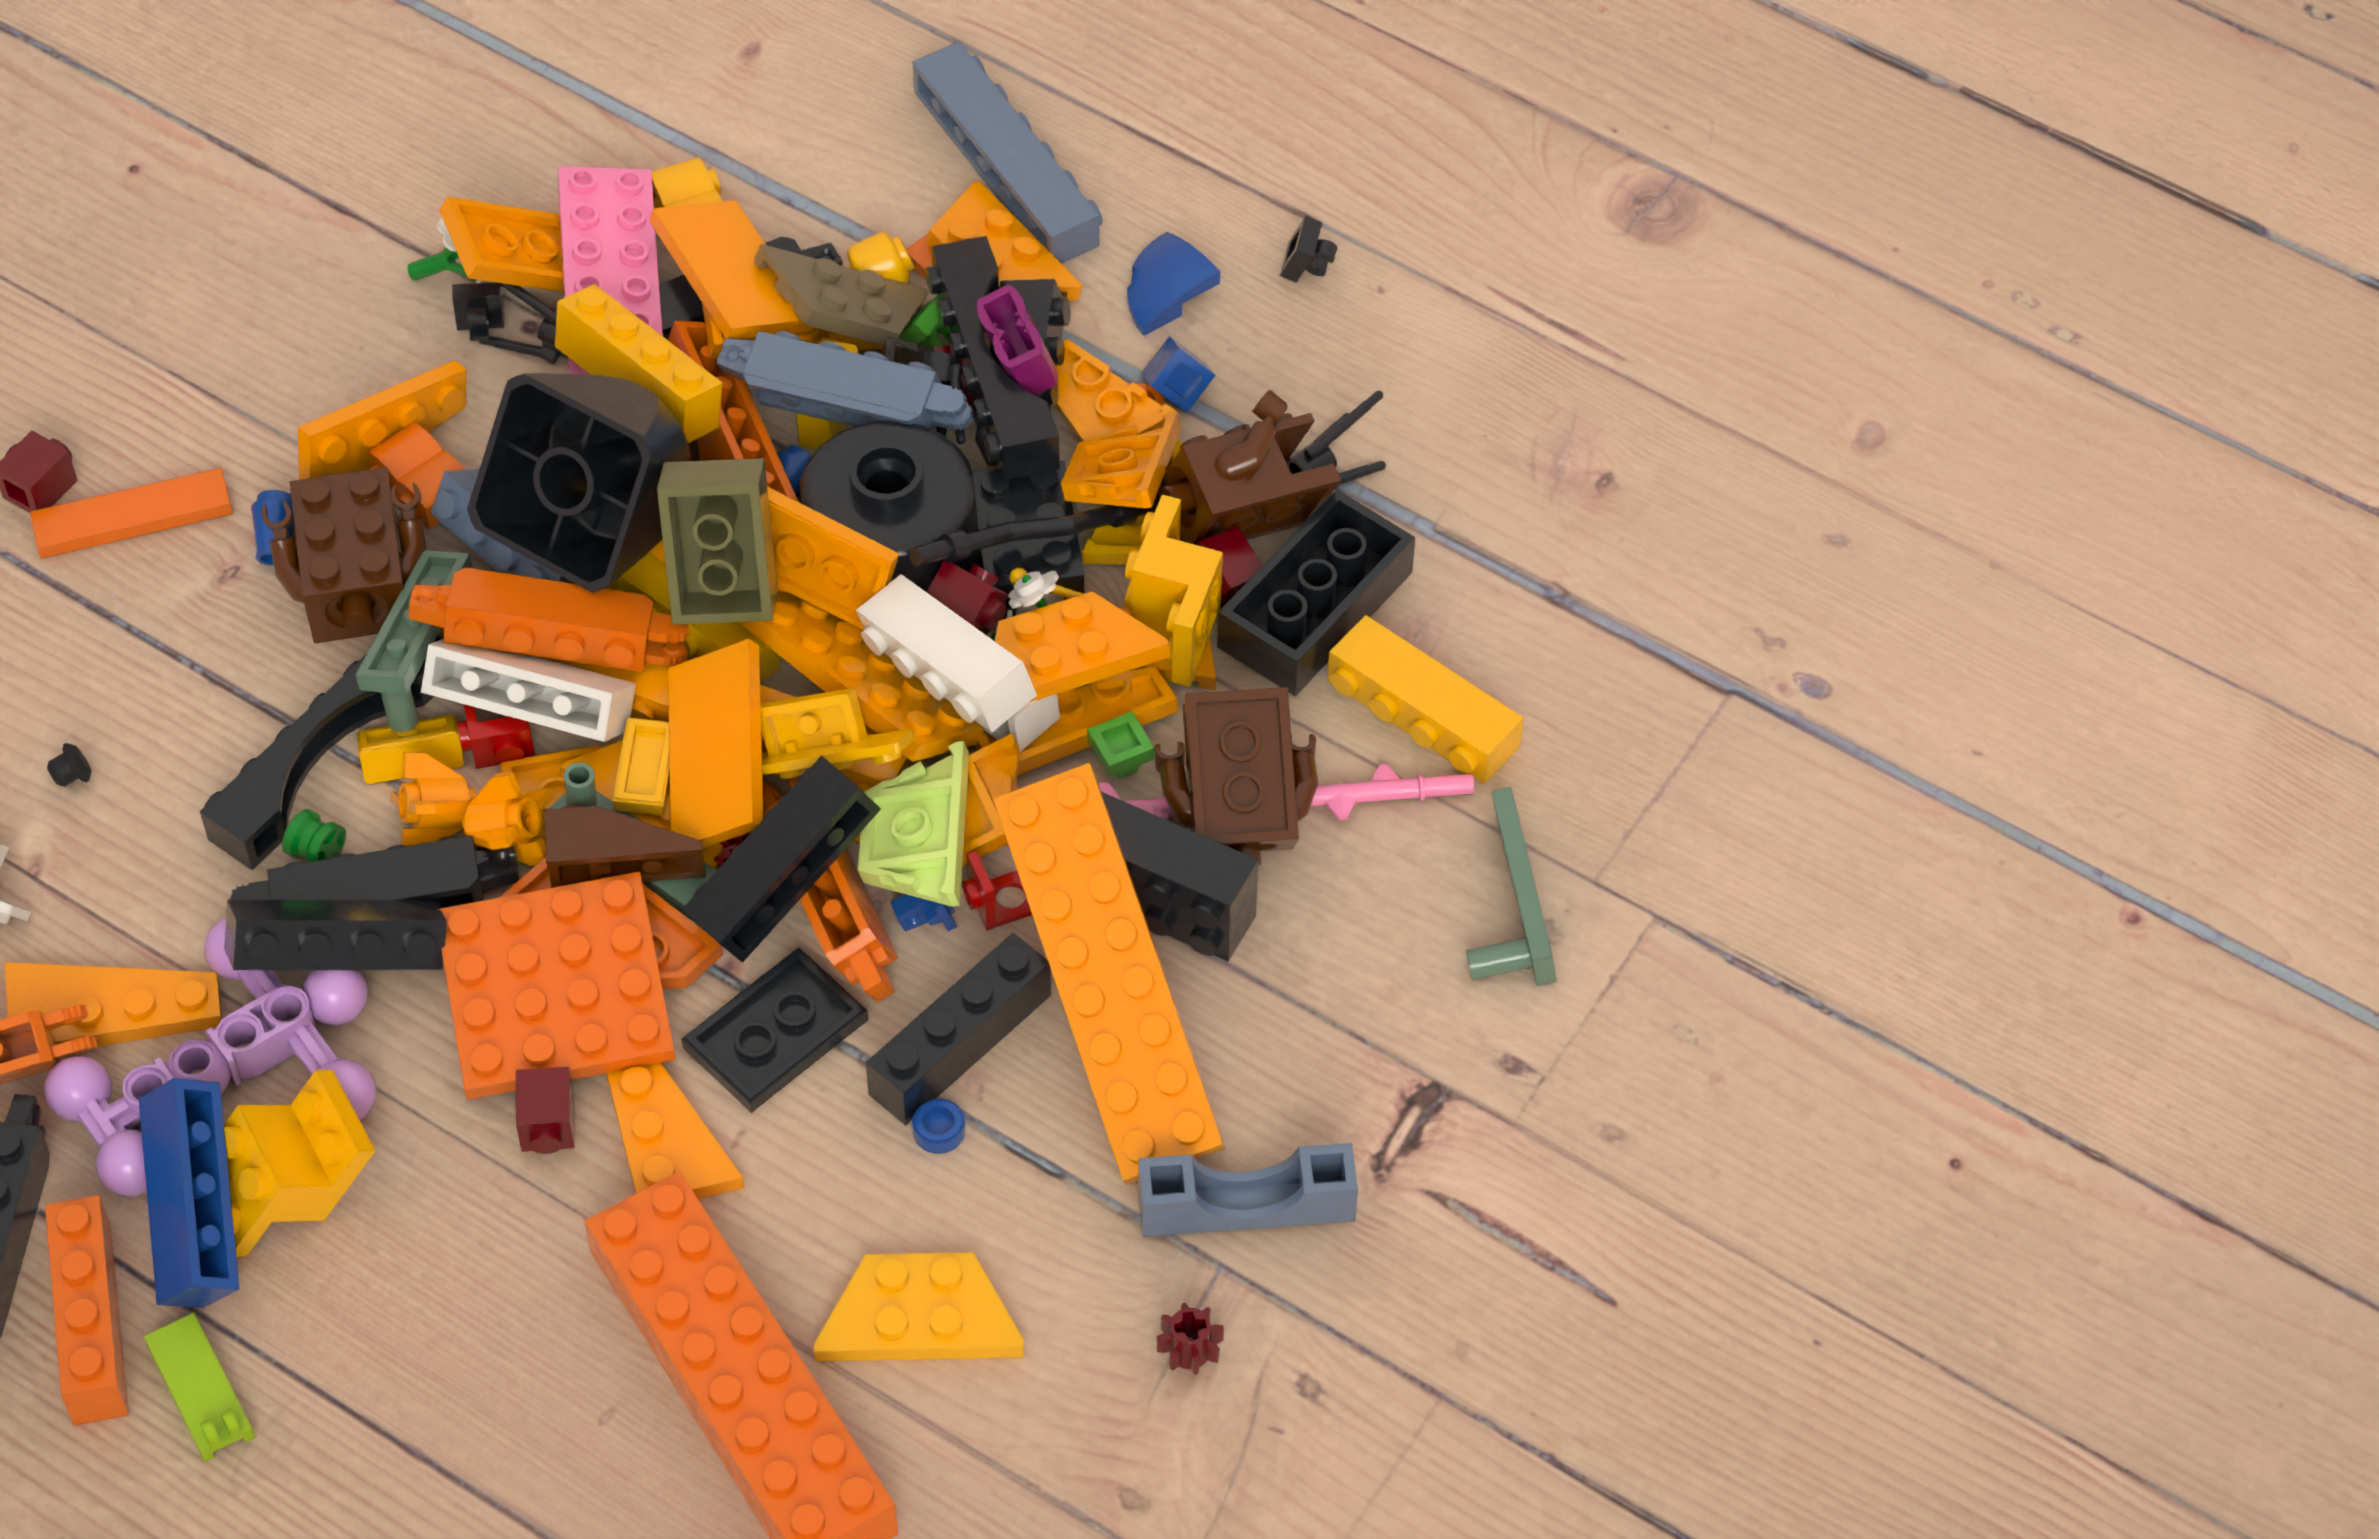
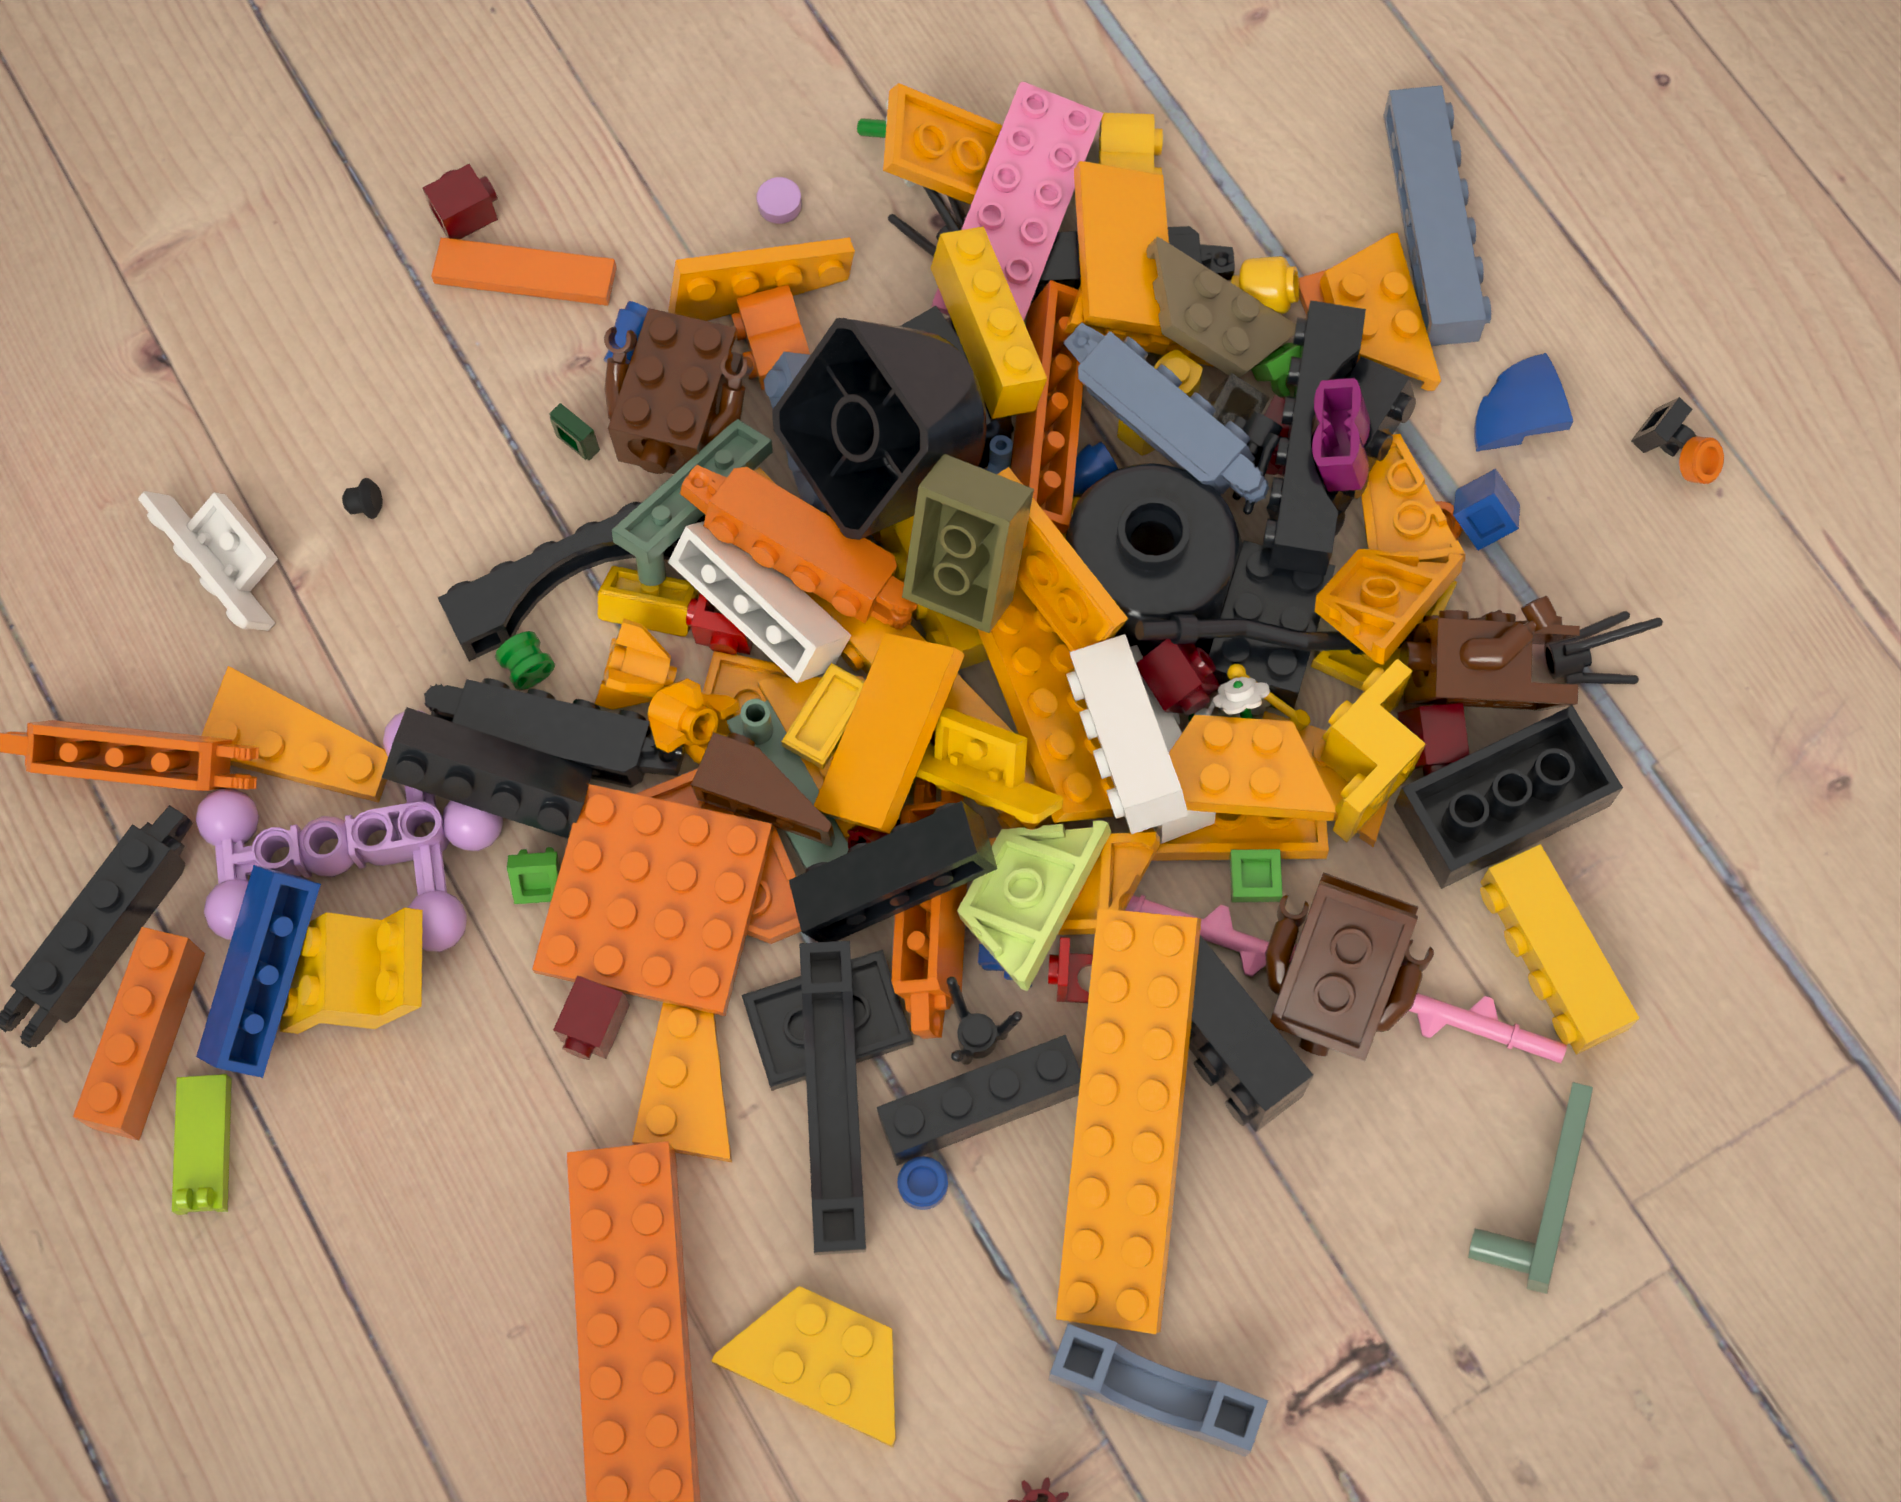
camera: 30 degrees right, 15 degrees up
(260, 627) = (574, 432): none -> dark green tile
(362, 361) = (779, 200): none -> lavender tile
(423, 1018) = (533, 875): none -> bright green tile
(478, 308) = (895, 194): black tile -> none
(848, 1132) = (832, 1098): none -> black arch
(925, 976) = (976, 1031): none -> black plant
(1351, 264) = (1701, 460): none -> orange tile

